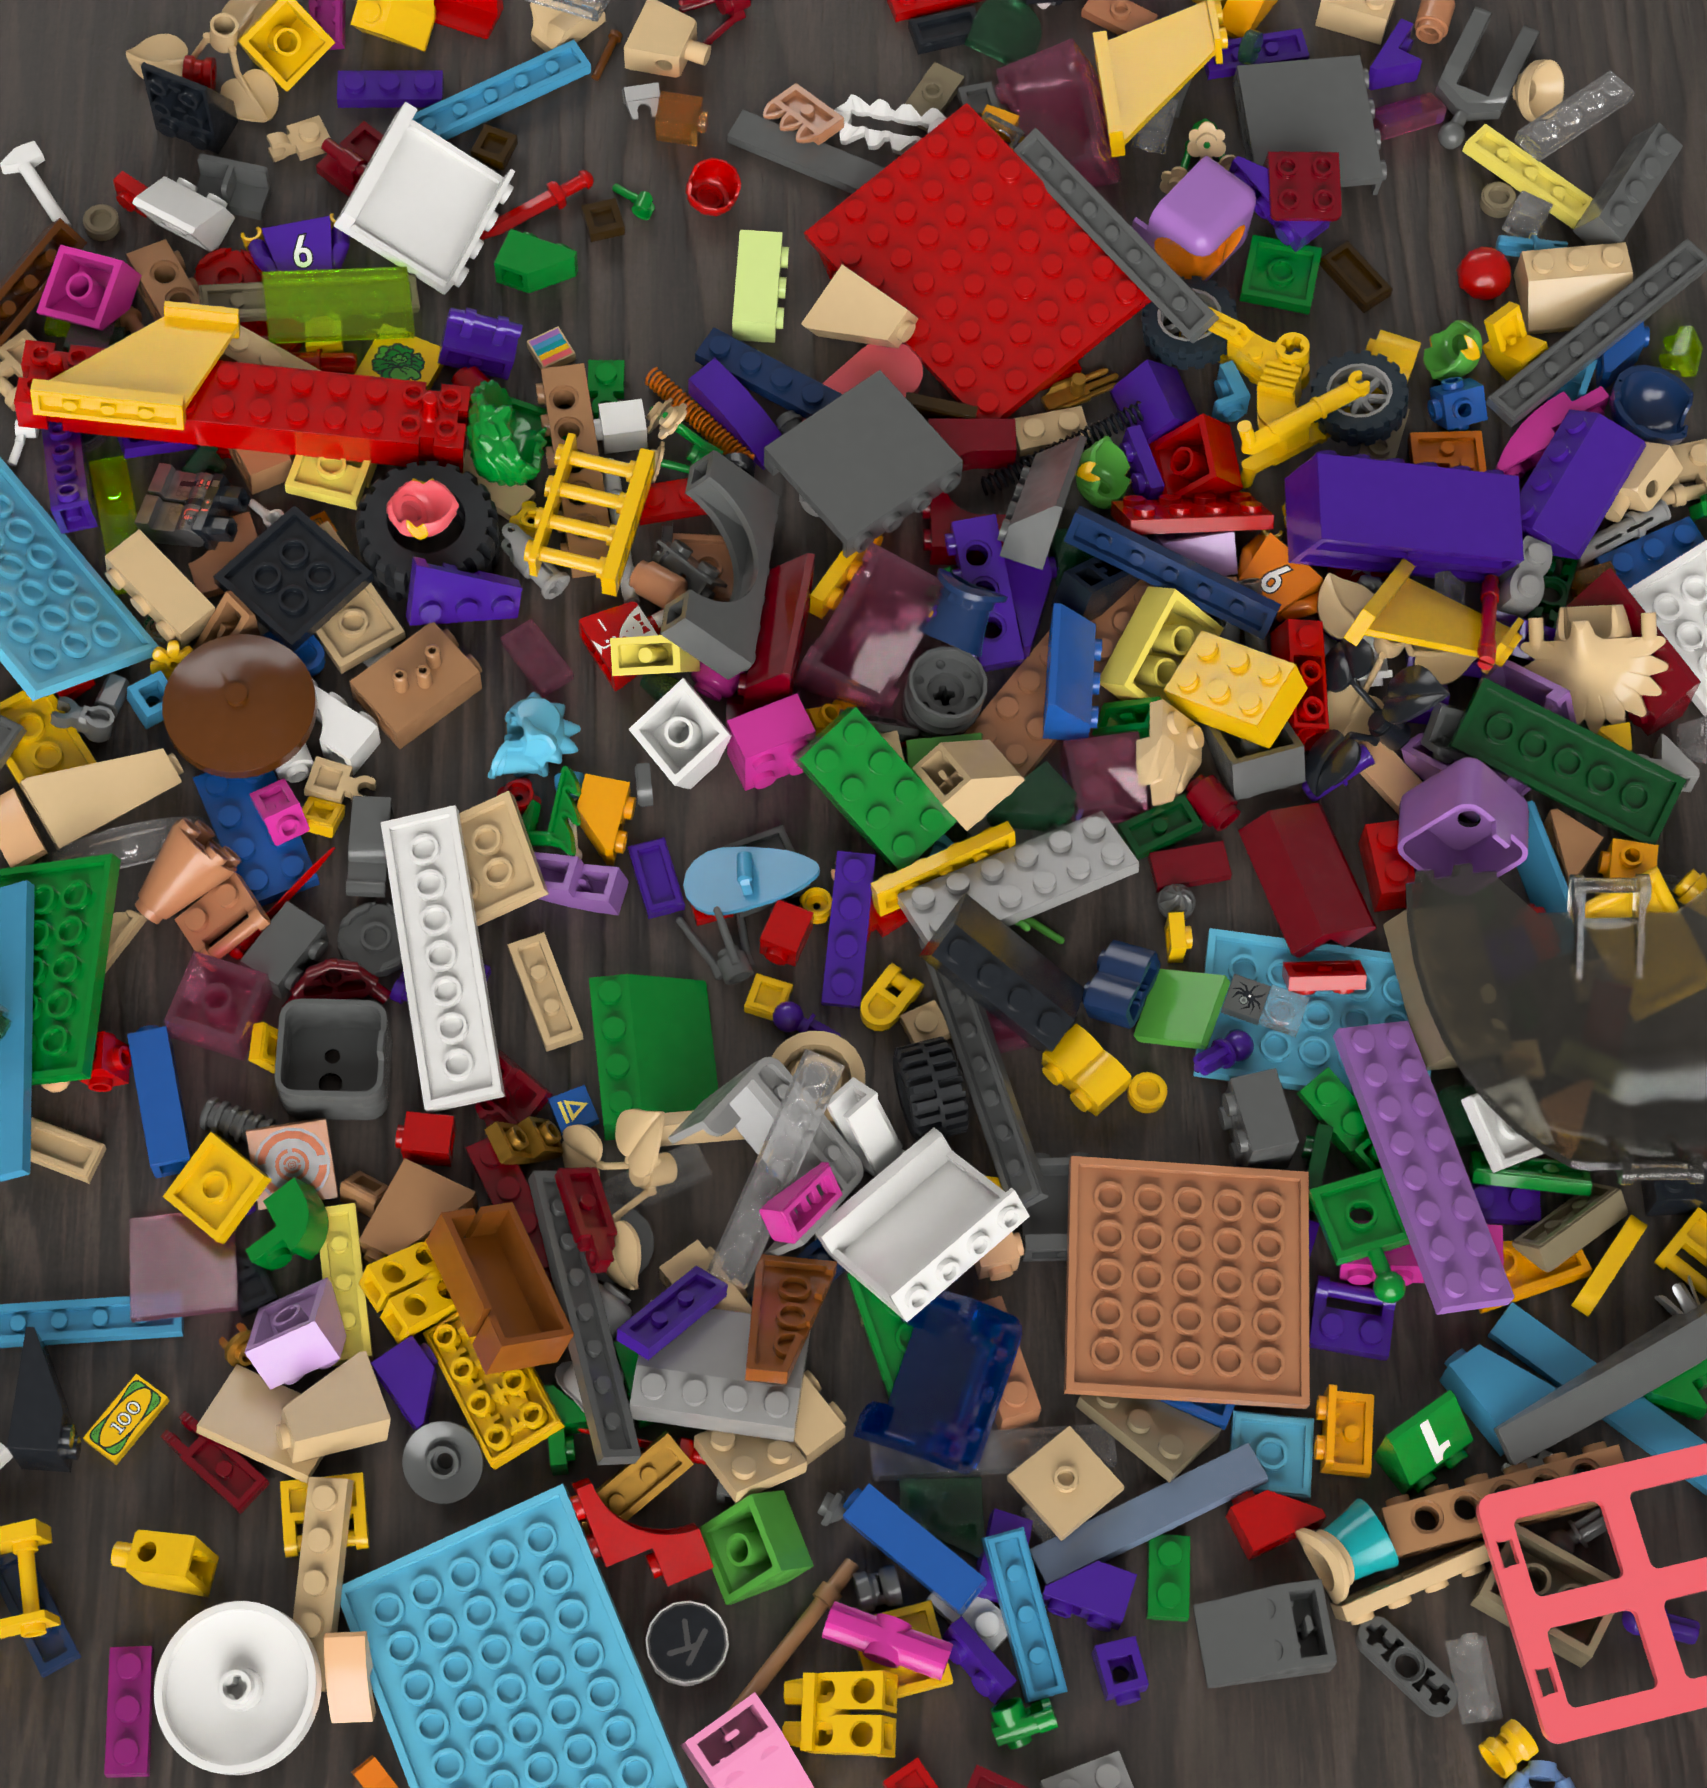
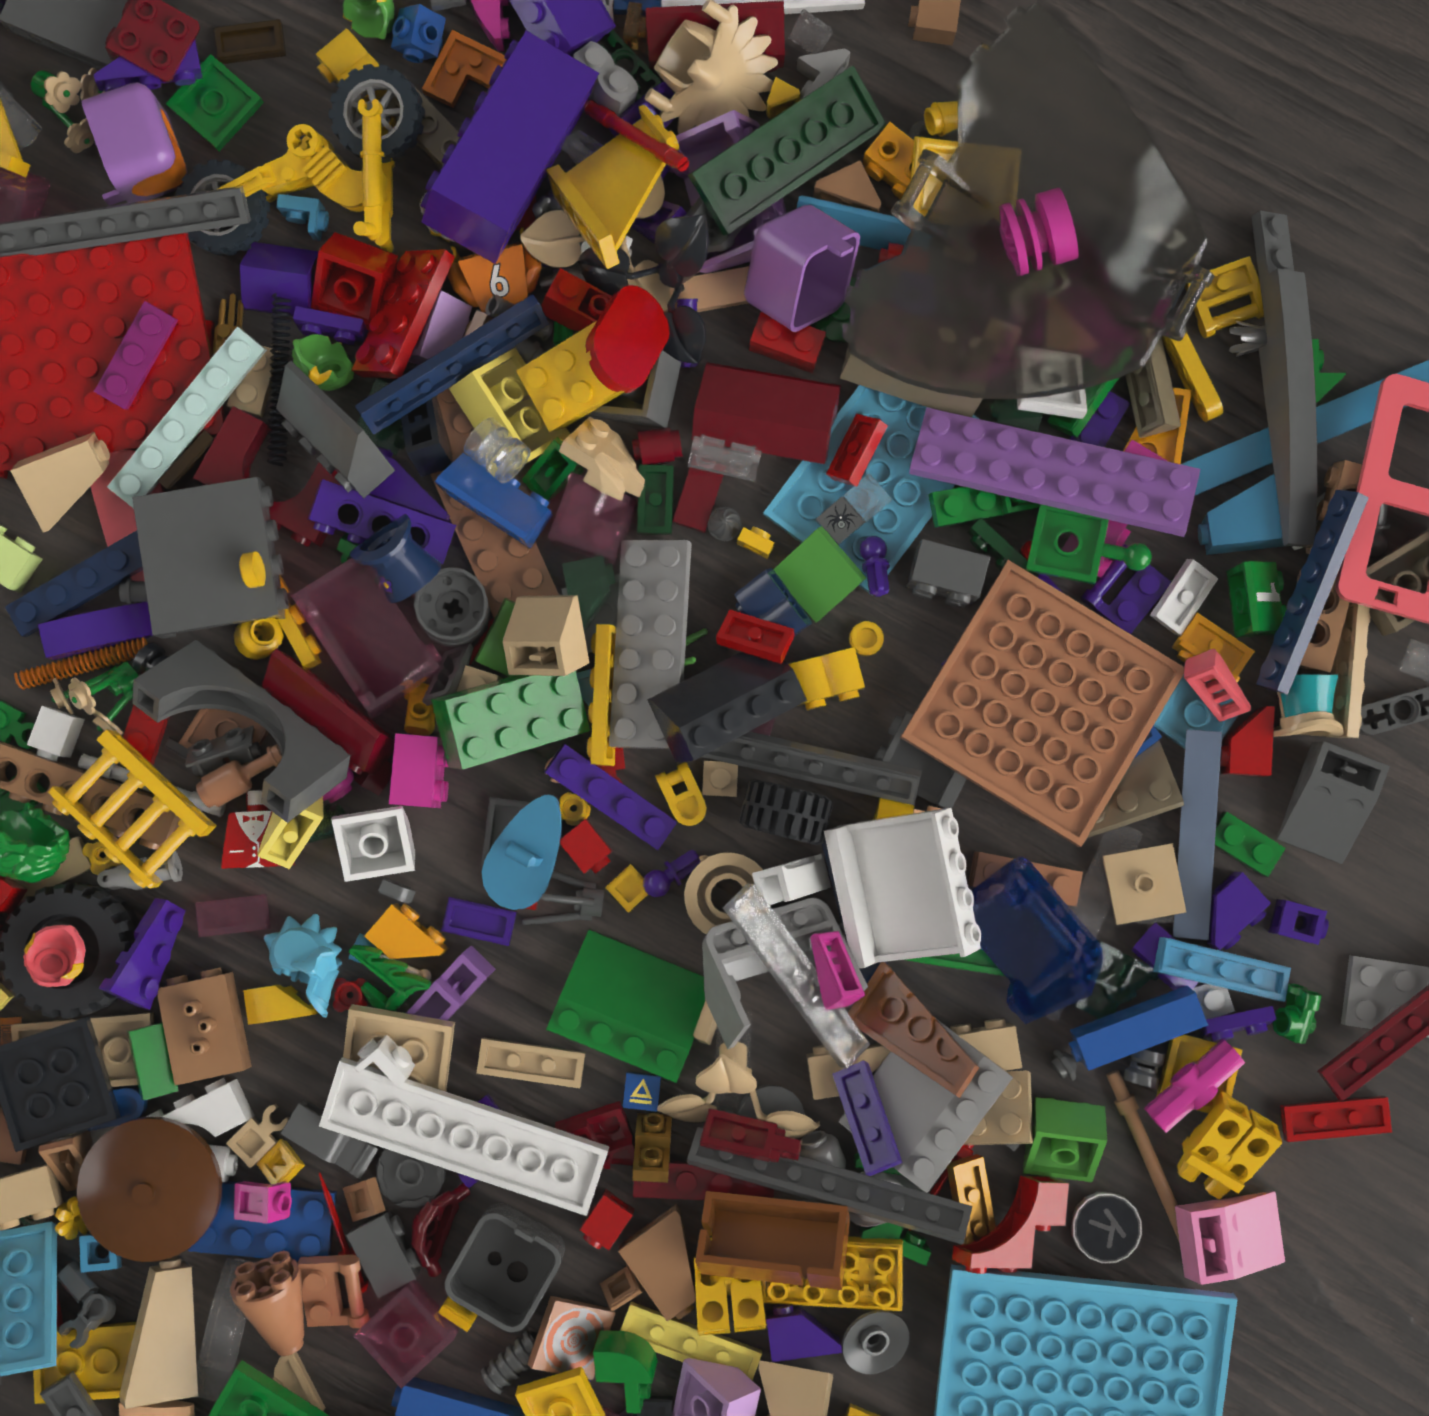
camera: 55 degrees left, 20 degrees up
(329, 905) = (364, 1199): none -> medium nougat plate
(360, 652) = (151, 1061): none -> green tile
(473, 735) = (274, 1004): none -> yellow slope
(483, 845) = (390, 1059): none -> white bracket
(816, 539) = (269, 634): none -> yellow head
(876, 494) = (252, 569): none -> yellow tile
(986, 386) = (187, 416): none -> light aqua plate
(1010, 315) = (136, 355): none -> magenta plate
(1084, 972) = (755, 636): none -> red plate
(1116, 648) = (493, 447): none -> clear wheel
(1243, 877) = (712, 456): none -> clear hinge
(1293, 700) = (627, 339): none -> red tile
(1320, 1447) = (1210, 666): none -> coral slope
(1381, 1375) = (1184, 596): none -> white plate
(1481, 1473) = (1312, 591): none -> dark blue plate
(1634, 1010) = (1044, 230): none -> dark pink wheel

